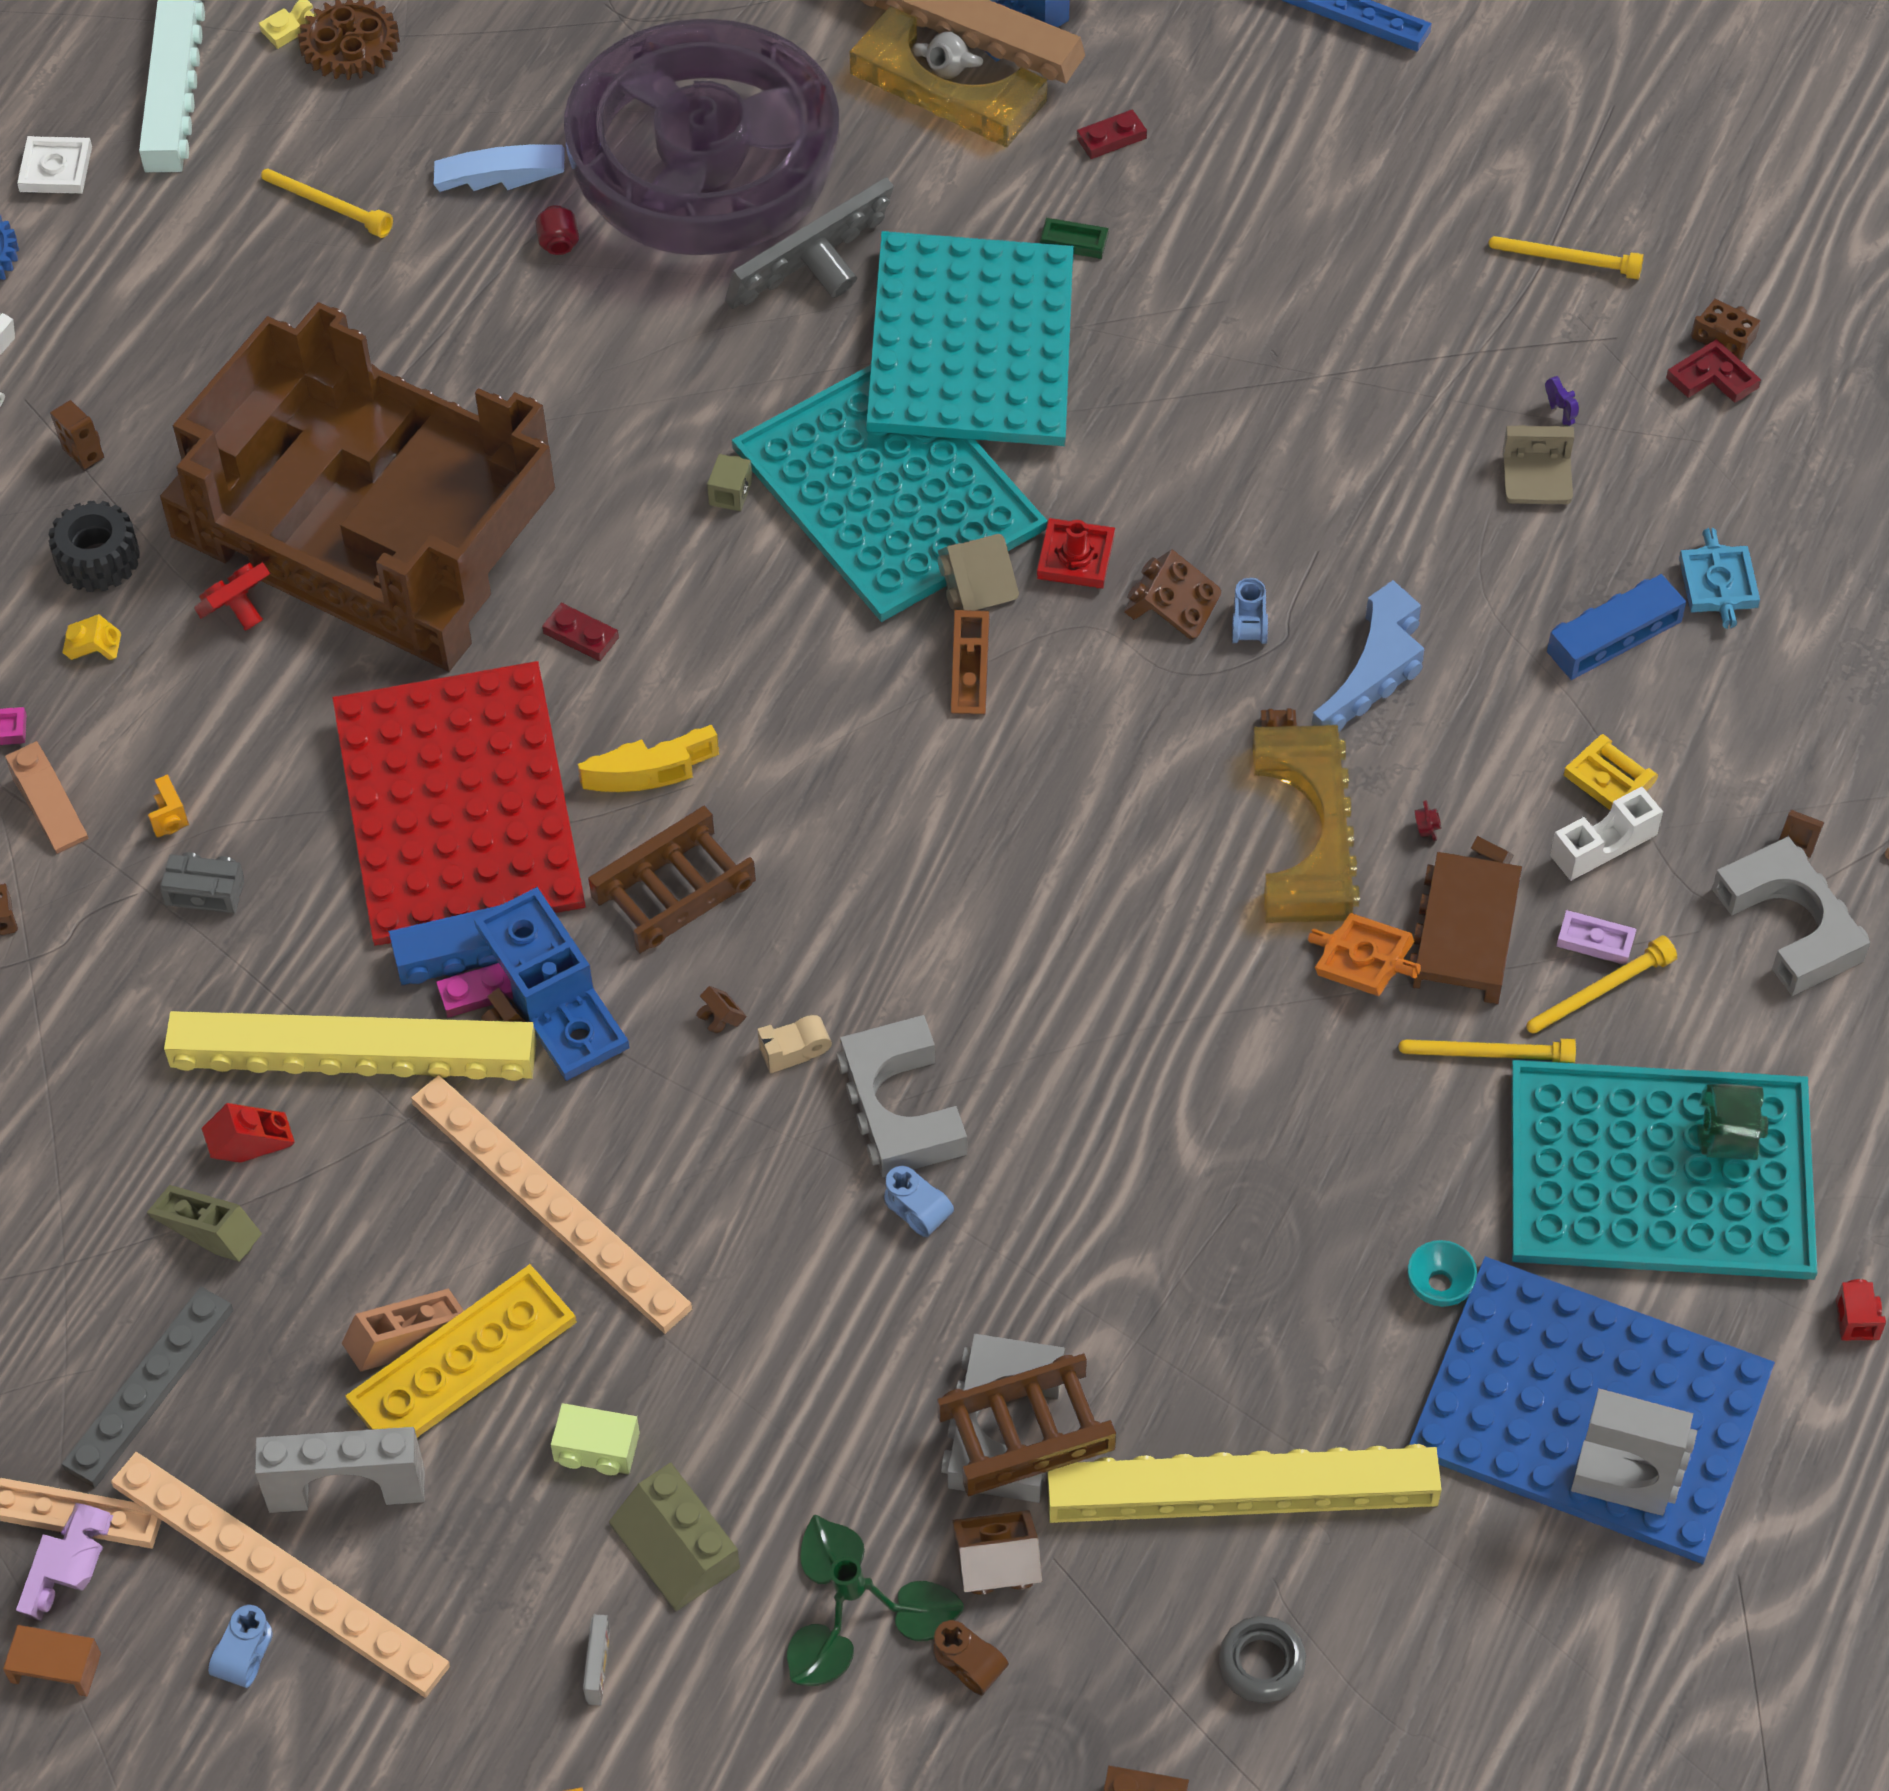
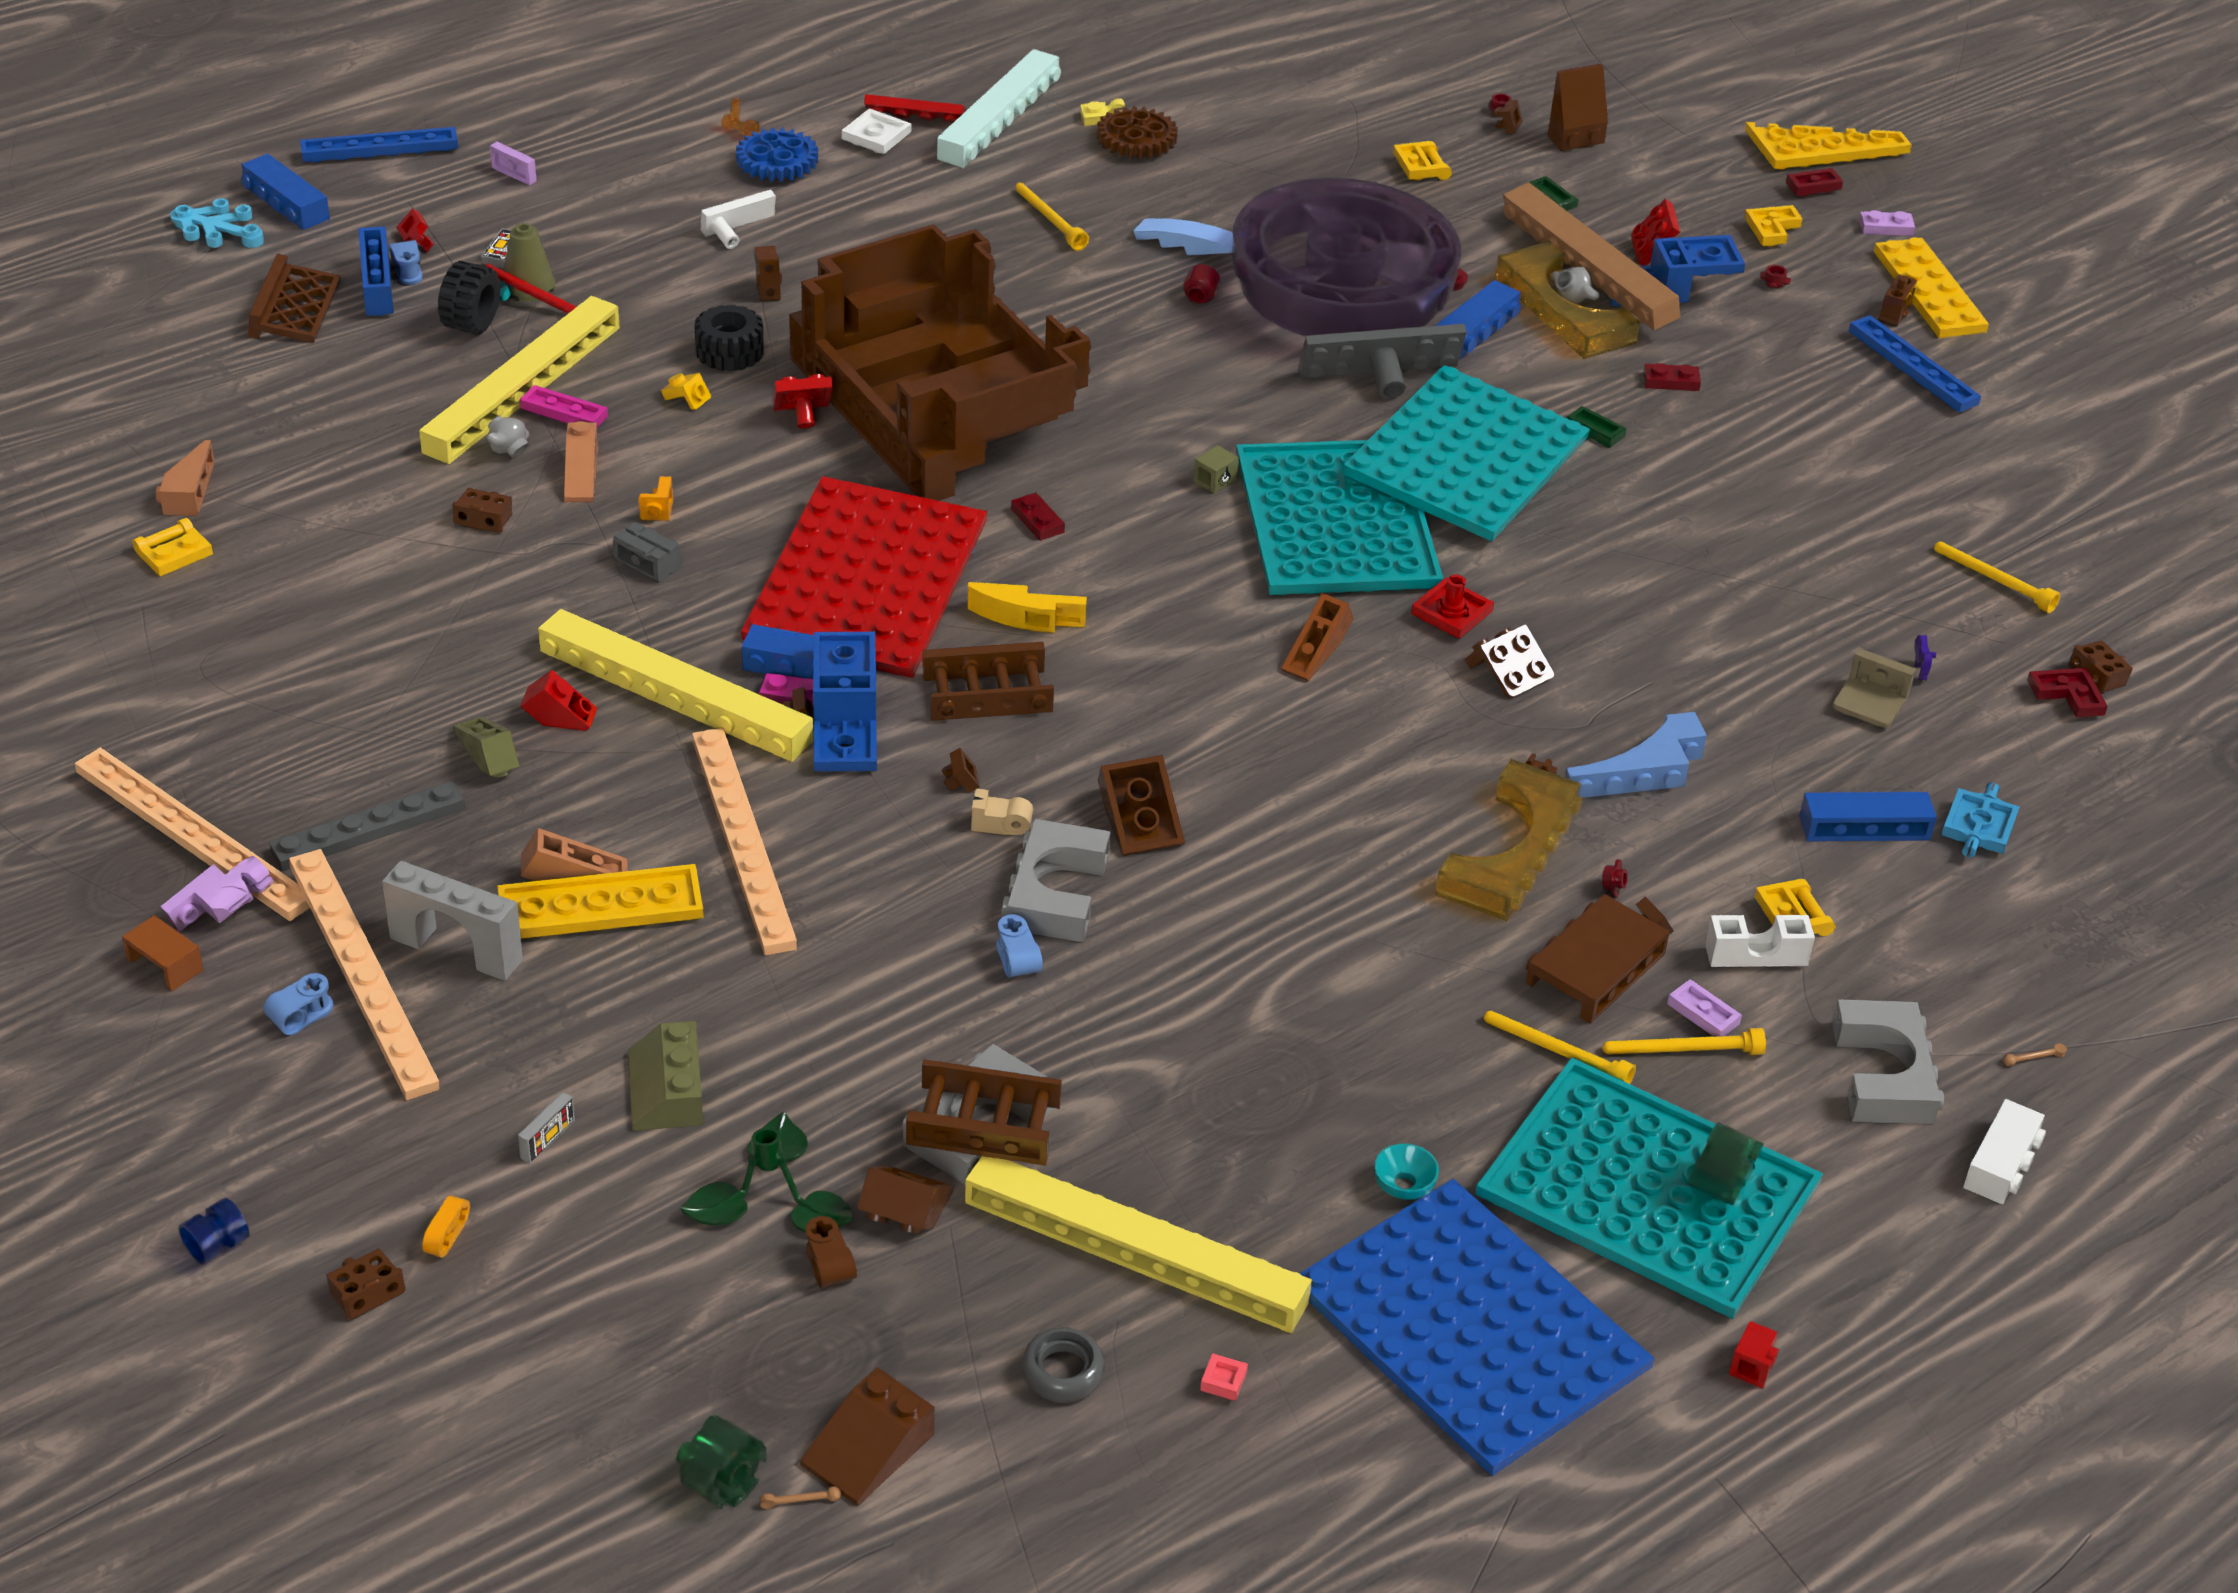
camera: 25 degrees right, 15 degrees down
(64, 116) = (924, 109): none -> red plate
(595, 1439) = (656, 990): yellowish green brick -> none
(875, 141) = (1485, 313): none -> blue brick
(928, 964) = (1140, 805): none -> reddish brown slope
(978, 573) = (1364, 585): dark tan bracket -> none
(1250, 617) = (1563, 693): medium blue piece -> none
(1364, 954) = (1496, 938): orange plate -> none
(1414, 1592) = (1224, 1377): none -> coral plate
(1634, 1452) = (1486, 1316): light grey arch -> none
(1803, 831) = (1936, 1009): reddish brown tile -> none

